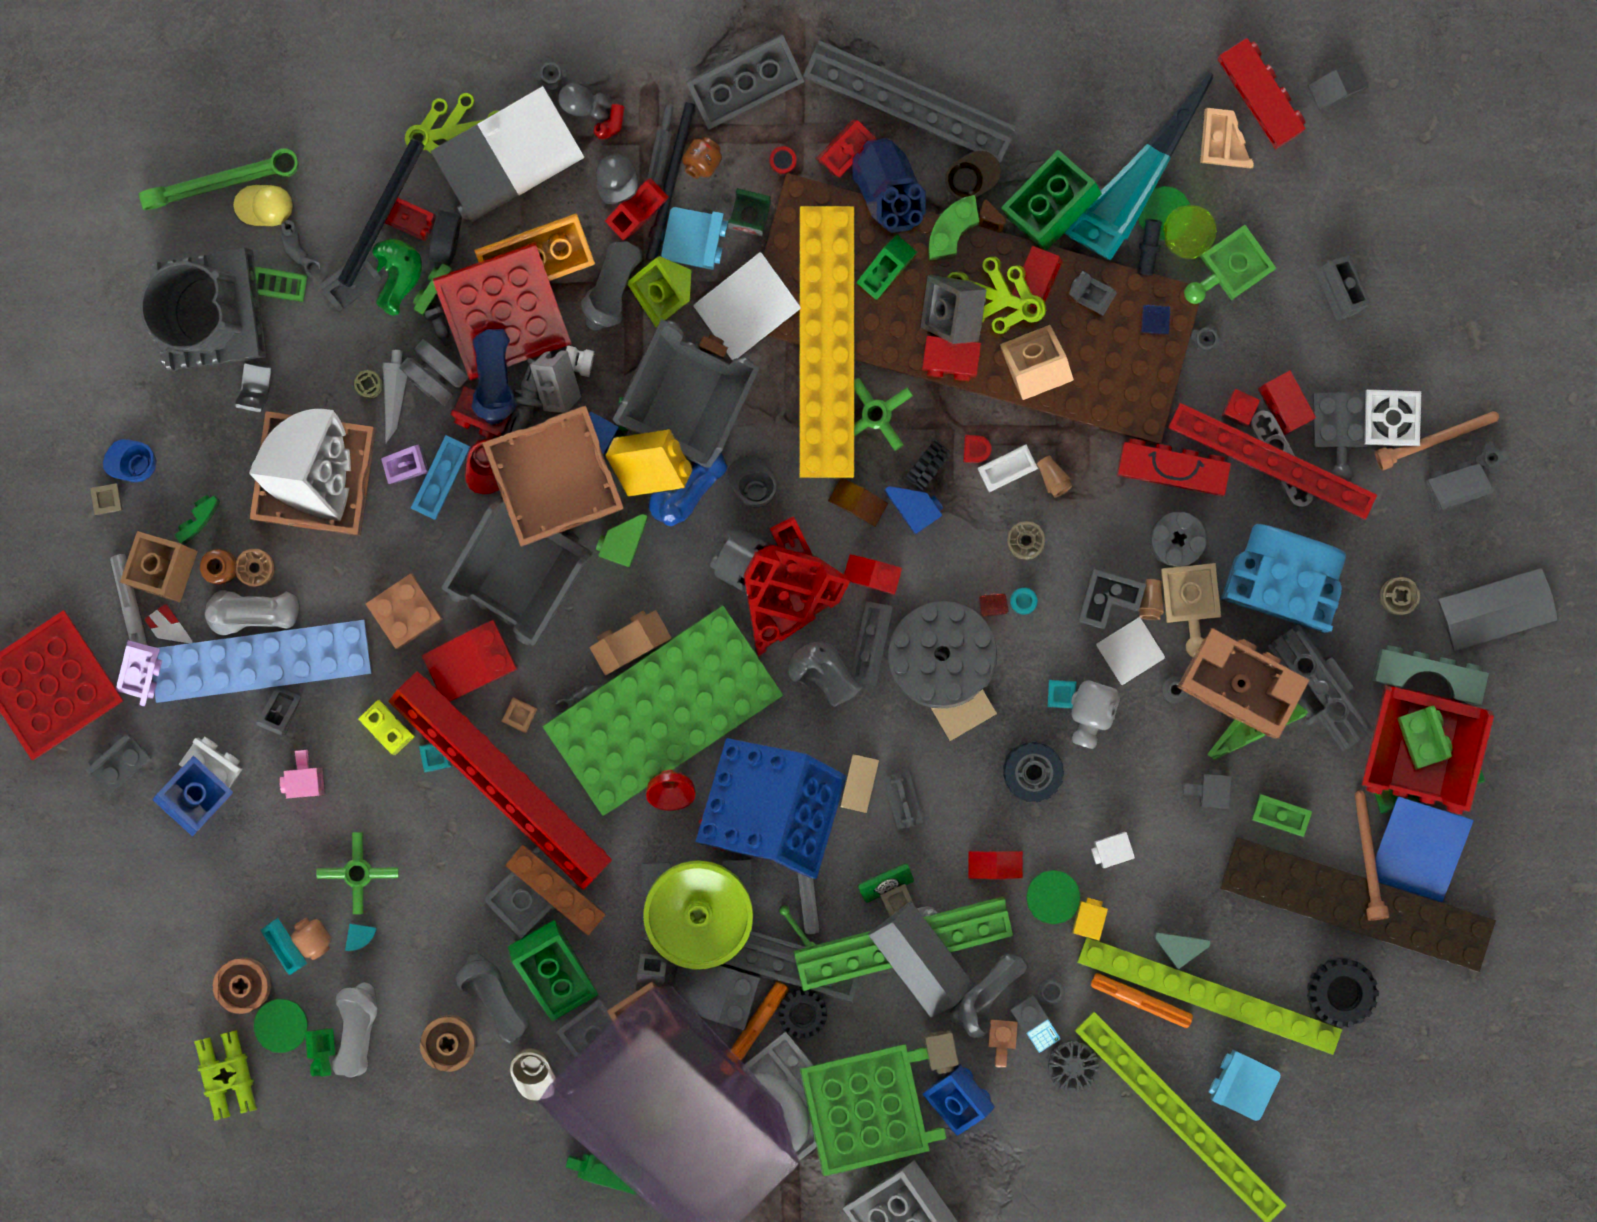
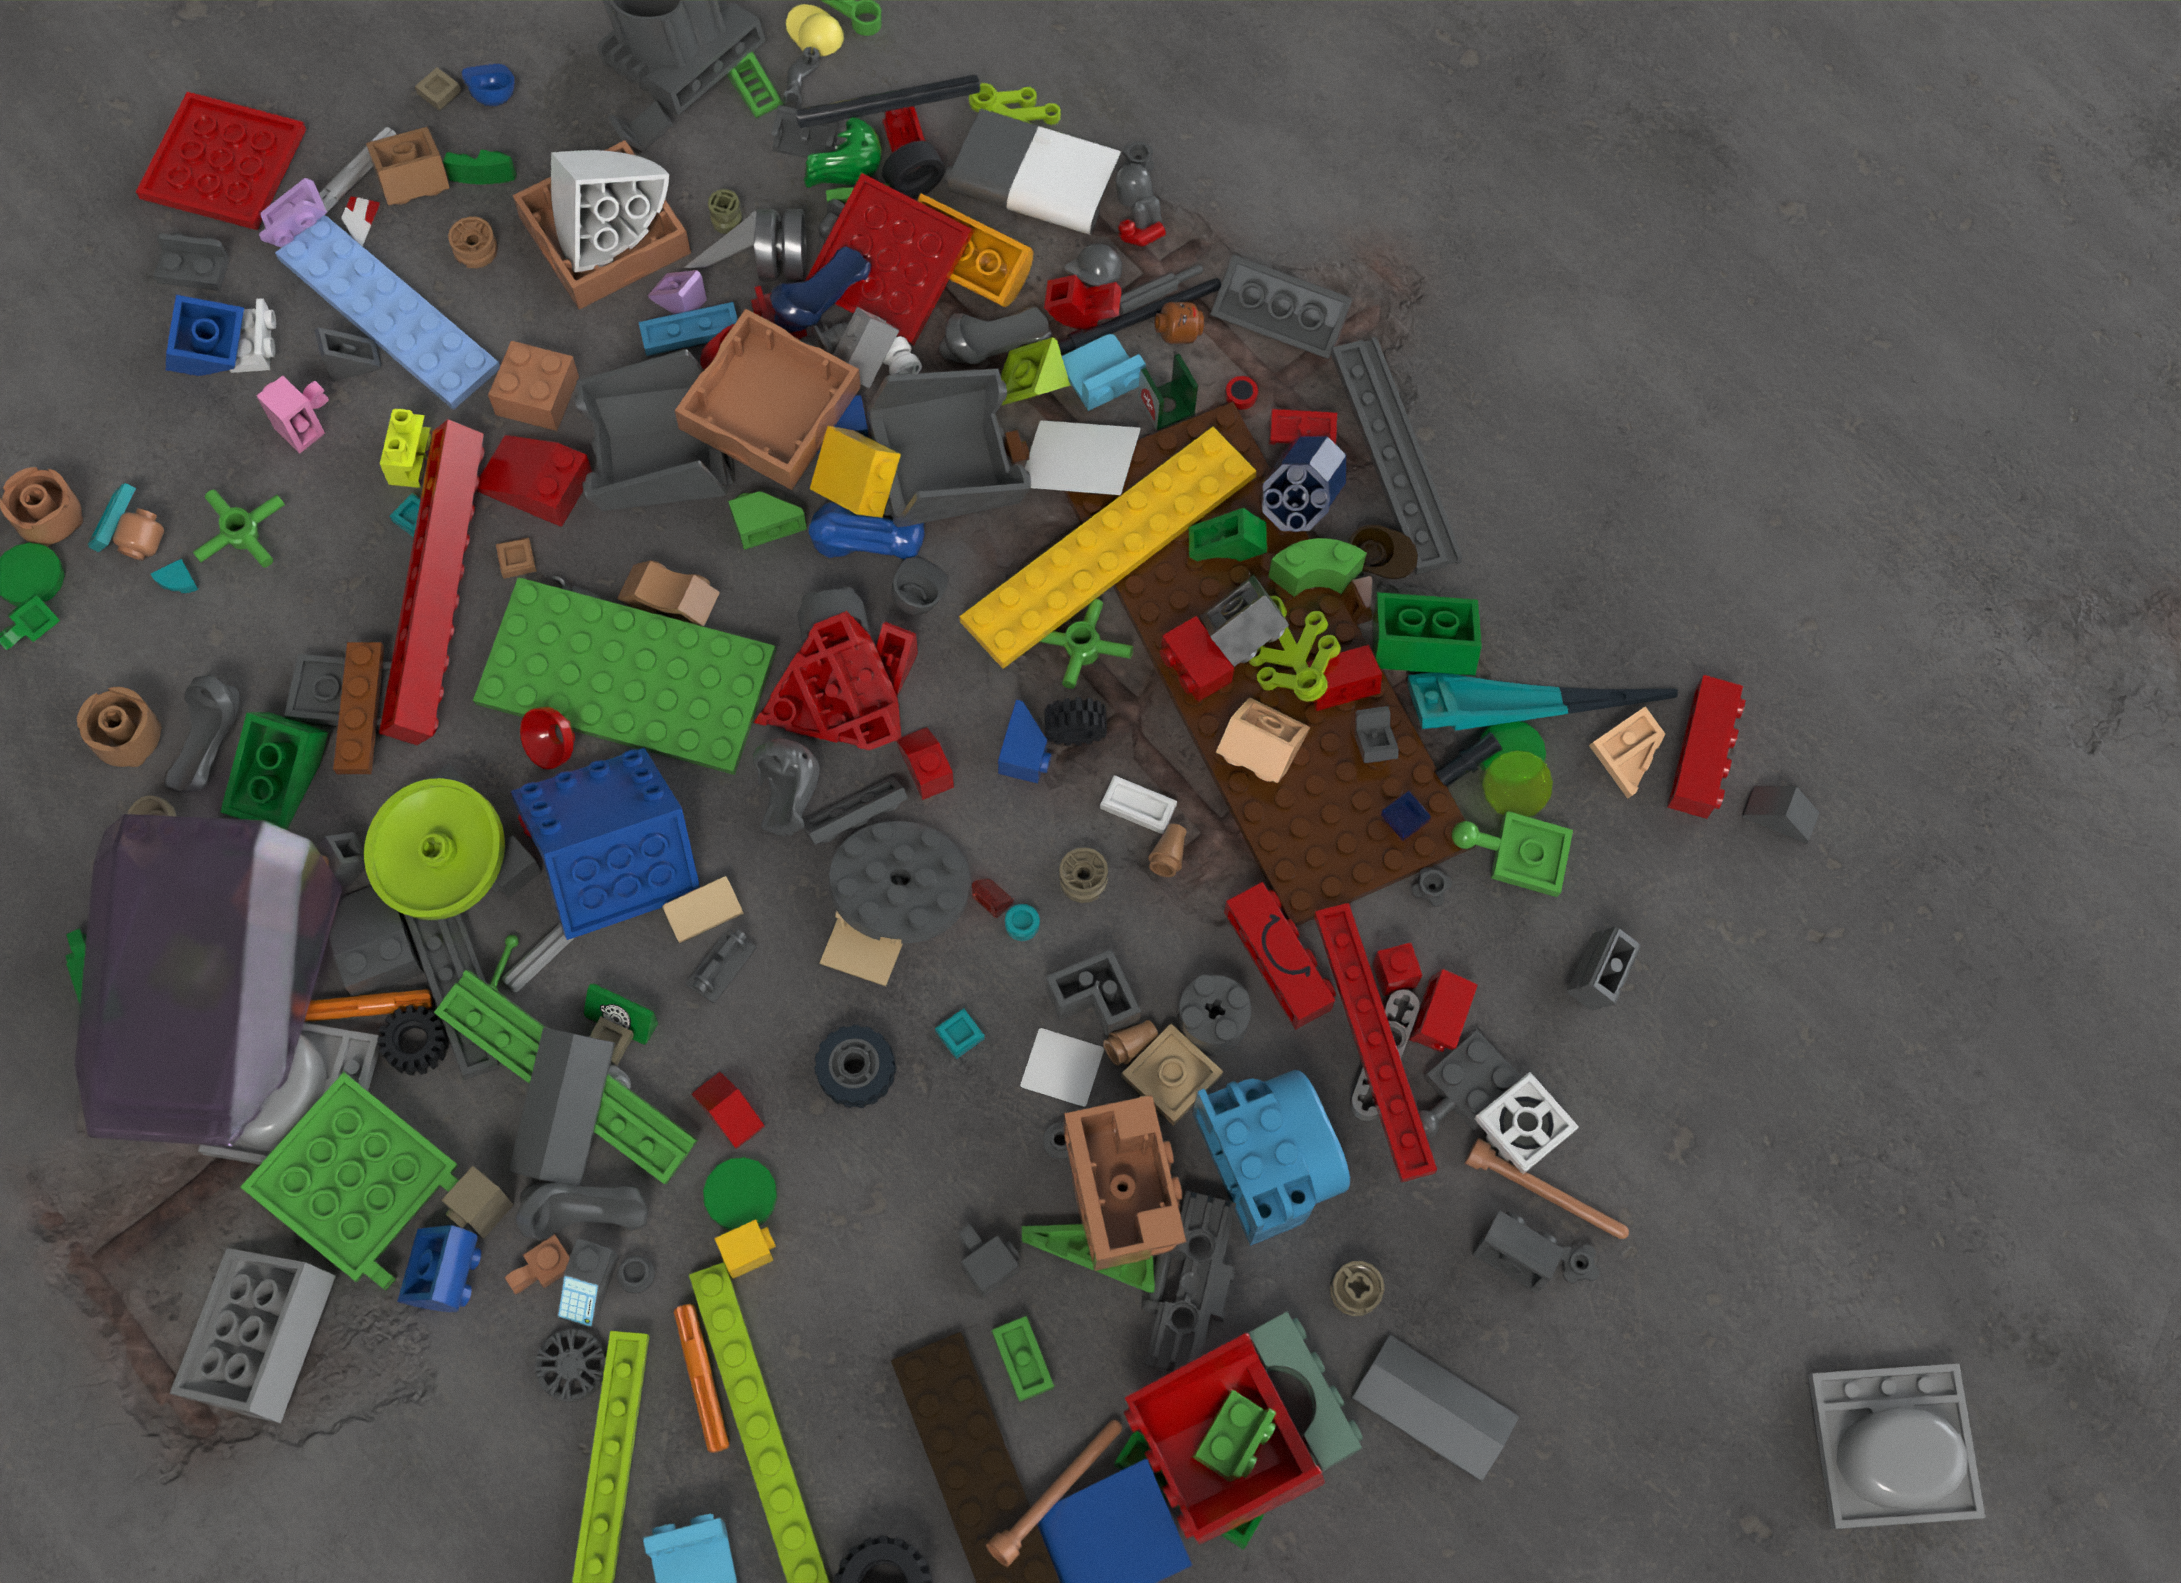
camera: 50 degrees right, 20 degrees down
(210, 566) = (446, 207): dark orange head -> none
(230, 612) = (415, 249): light grey hair -> none
(358, 1012) = (95, 626): light grey hair -> none
(858, 501) = (984, 697): reddish brown slope -> none
(976, 449) = (1130, 762): red tile -> none
(1094, 709) = (968, 1072): light grey piece -> none
(1112, 850) = (839, 1212): white brick -> none
(1180, 948) = (789, 1369): sand green slope -> none

